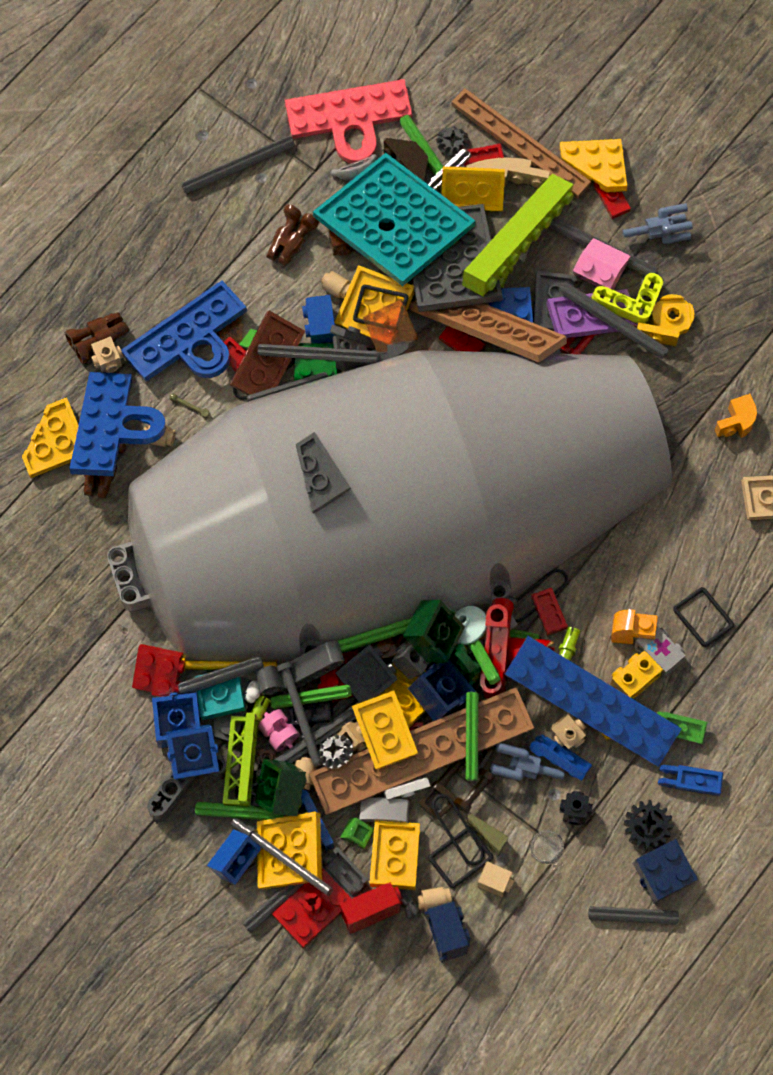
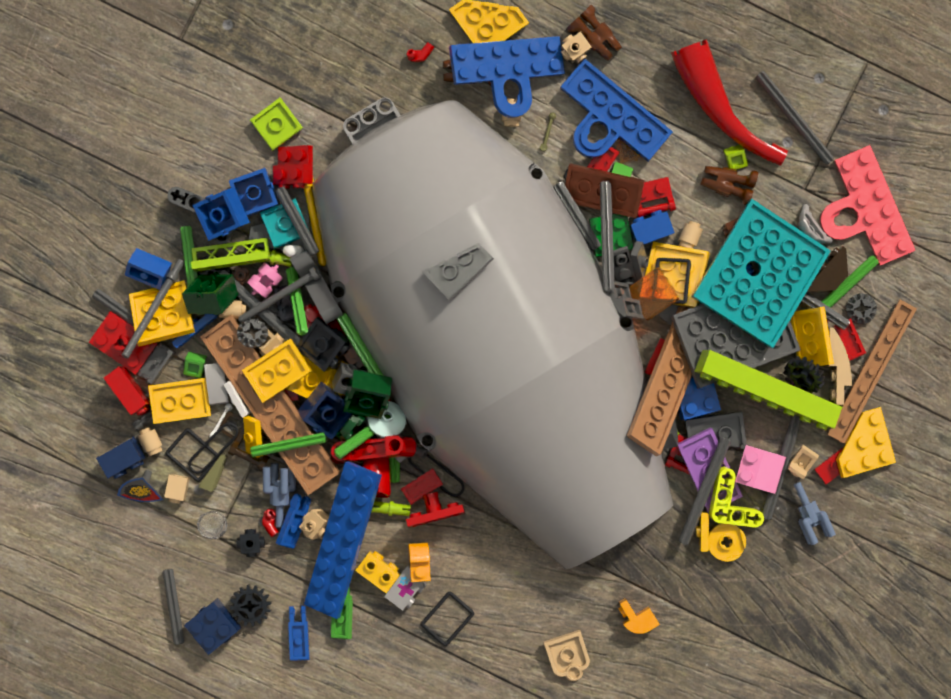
camera: 80 degrees right, 20 degrees up
(71, 516) = (420, 55): none -> red arm
(105, 683) = (276, 124): none -> lime plate
(177, 238) = (704, 83): none -> red brick
(264, 227) = (735, 157): none -> lime slope
(281, 306) = (656, 190): none -> red plate
(414, 805) = (228, 407): none -> white hinge
(451, 779) = (252, 433): none -> yellow plate
(488, 922) = (139, 489): none -> shield
(508, 200) = (804, 374): none -> black gear
(554, 786) = (268, 522): none -> red arm
(580, 599) = (434, 511): none -> red plate
(601, 224) = (802, 462): none -> tan bracket

